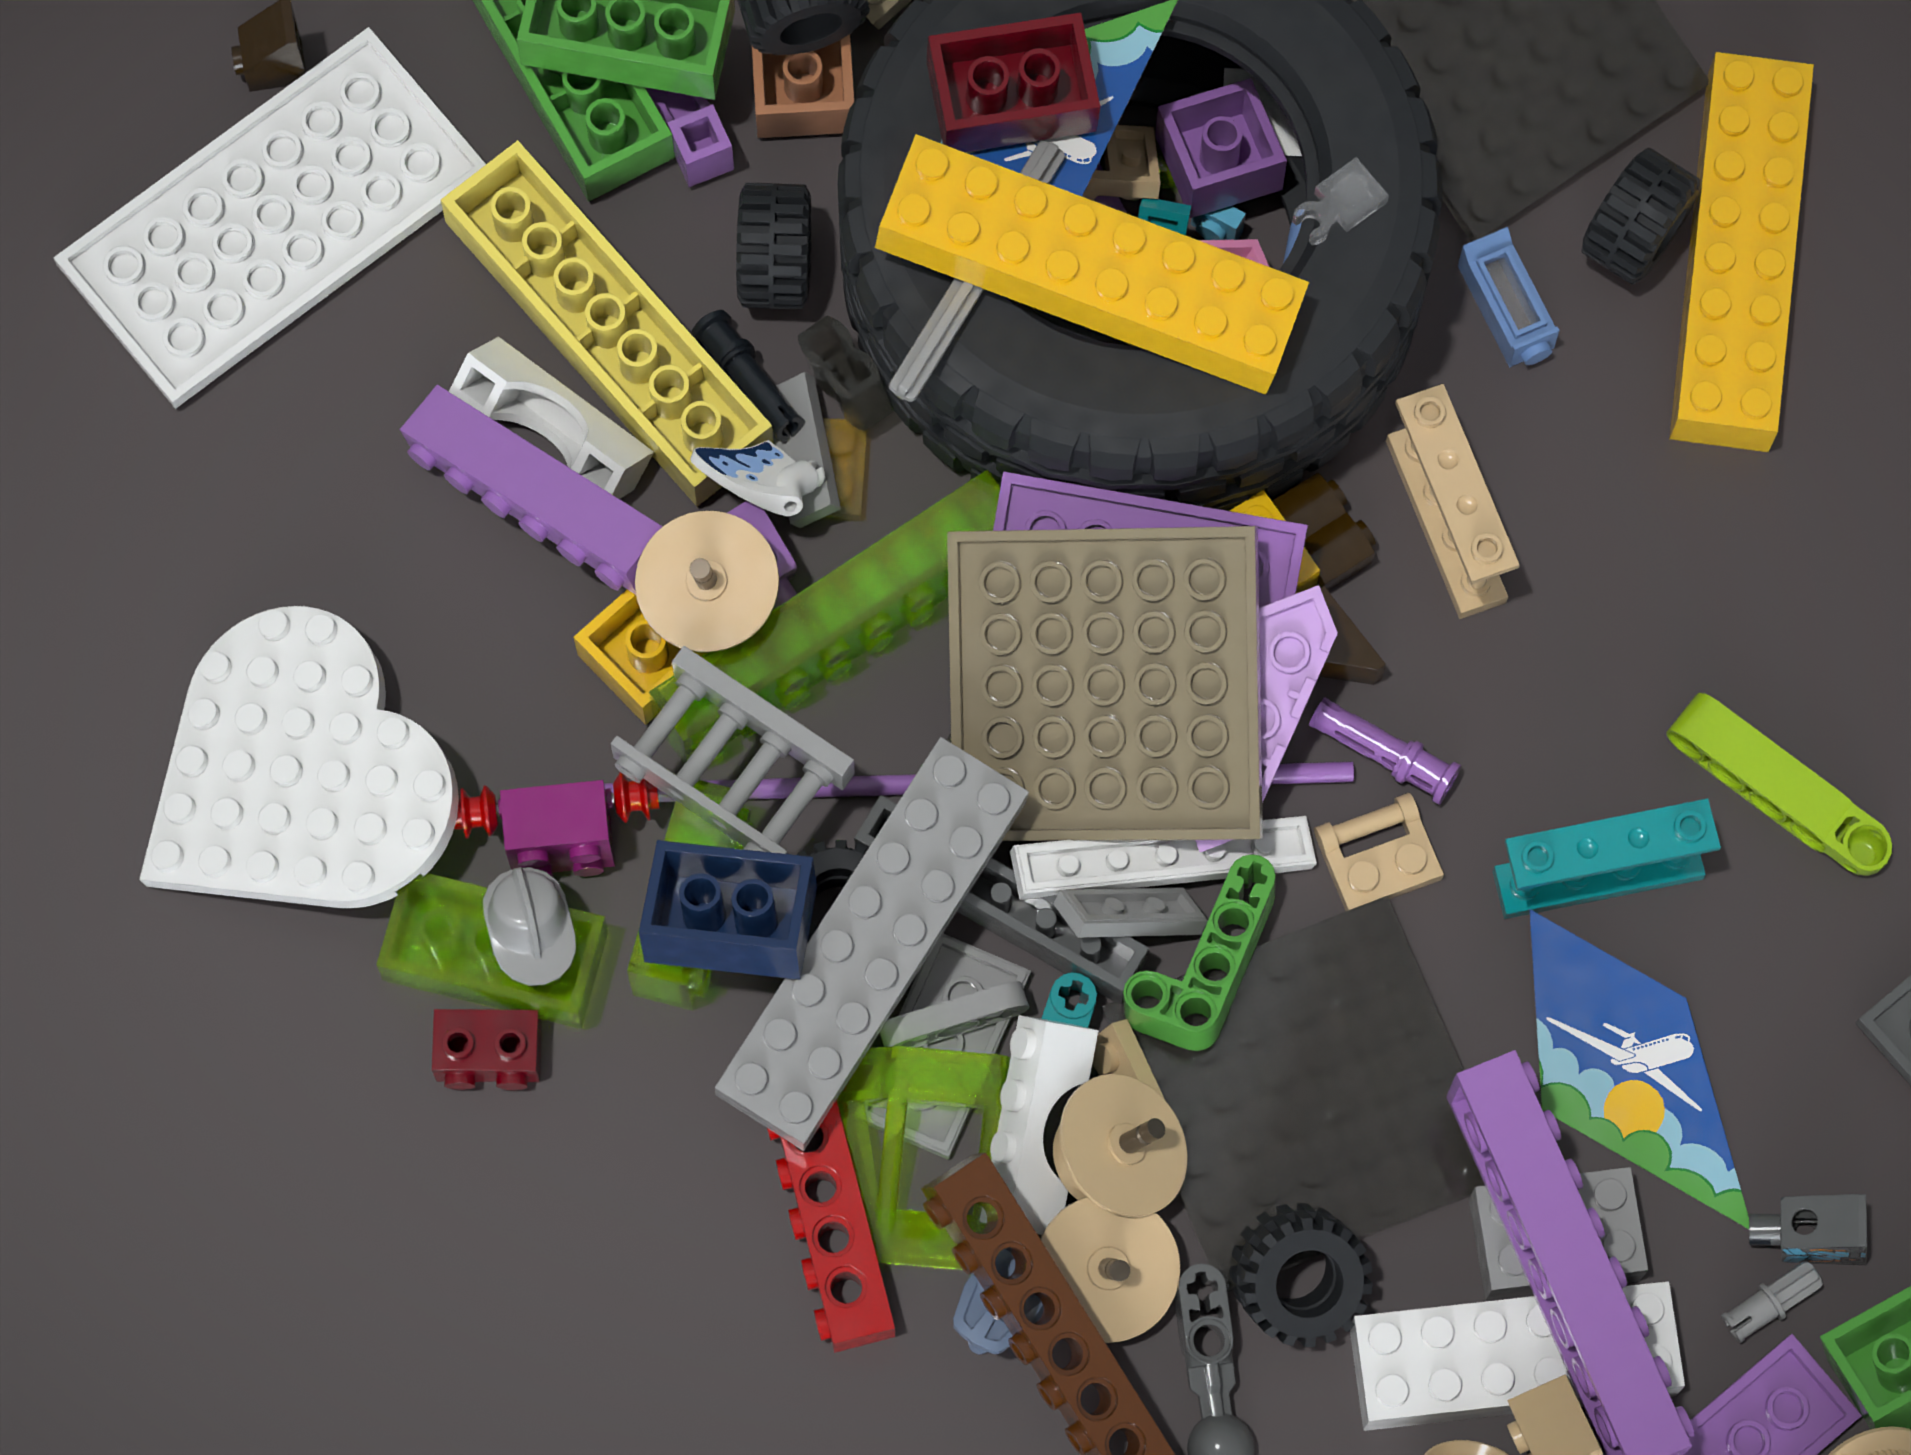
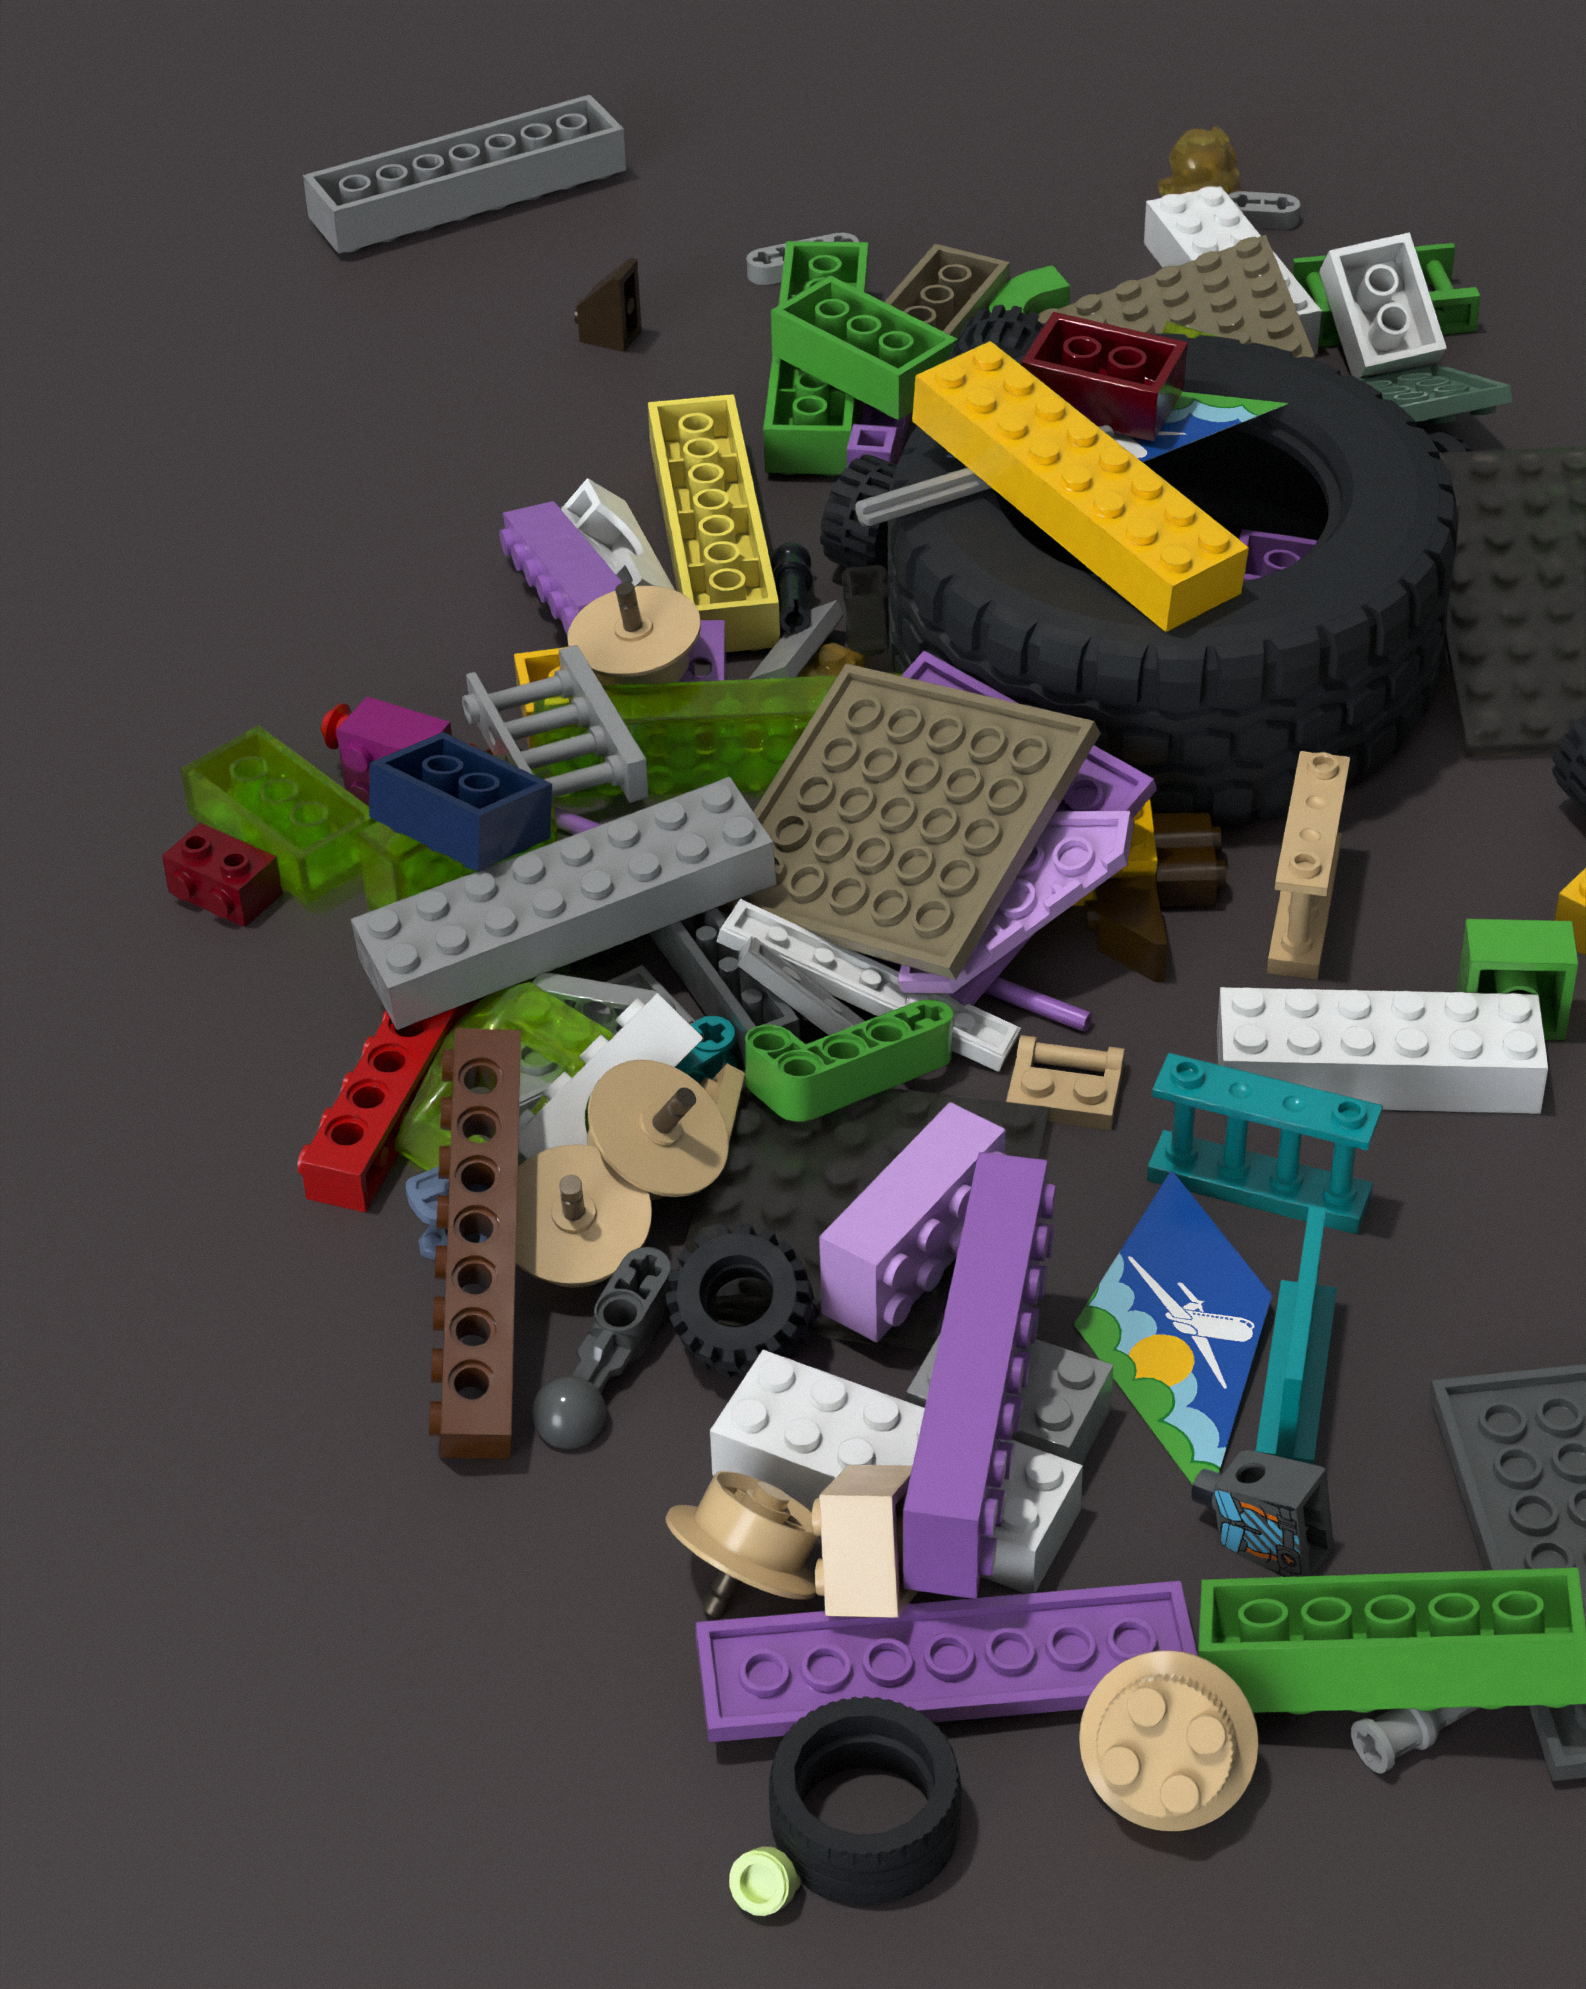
camera: 35 degrees right, 30 degrees down
(270, 217) = (520, 394): white plate -> none
(297, 774) = (239, 659): white plate -> none
(529, 926) = (315, 786): light grey piece -> none
(761, 475) = (742, 619): white arm -> none
(1344, 197) = (1327, 544): clear plate -> none
(1397, 1122) = (904, 1225): none -> lavender brick
(1404, 759) = (1139, 1028): medium lavender pin -> none
(1508, 299) = (1467, 784): medium blue window -> none
(1619, 677) = (1392, 1045): none -> white brick
(1693, 538) = (1522, 960): none -> bright green brick
(1747, 1058) = (1298, 1356): none -> teal fence
(1772, 1301) = (1183, 1557): light grey axle -> none
(1780, 785) = (1480, 1190): lime piece -> none

